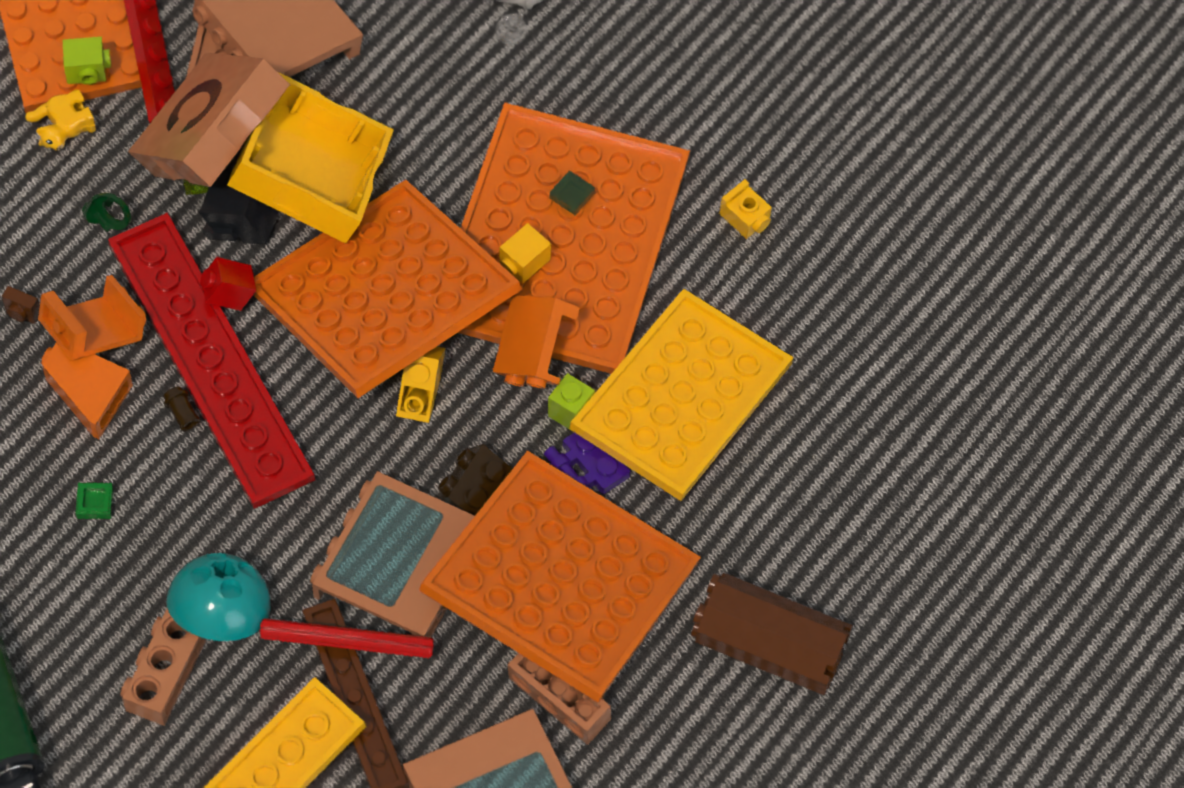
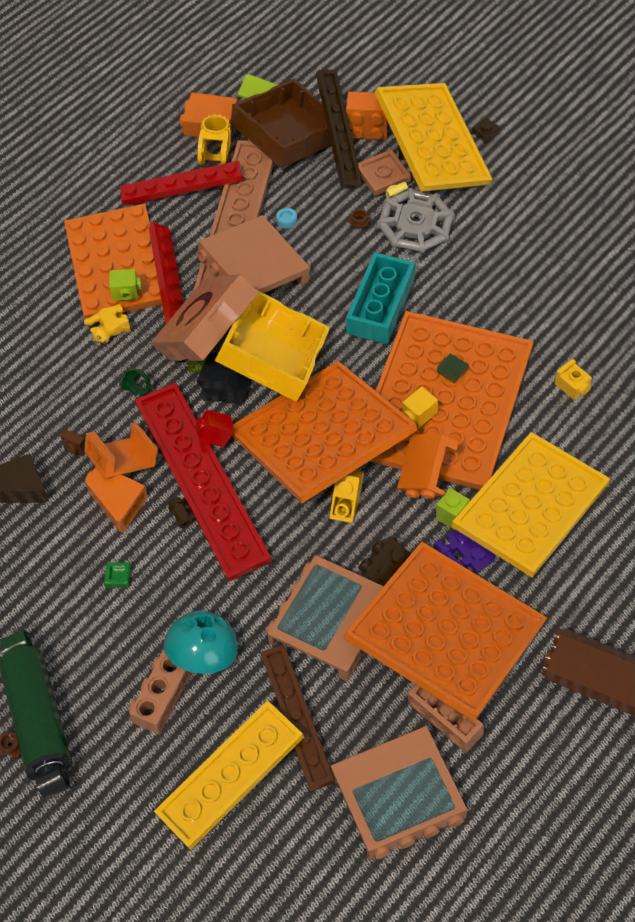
camera: 10 degrees right, 5 degrees down
(346, 638) = (291, 672): red axle -> none
(467, 83) = (380, 298): none -> teal brick

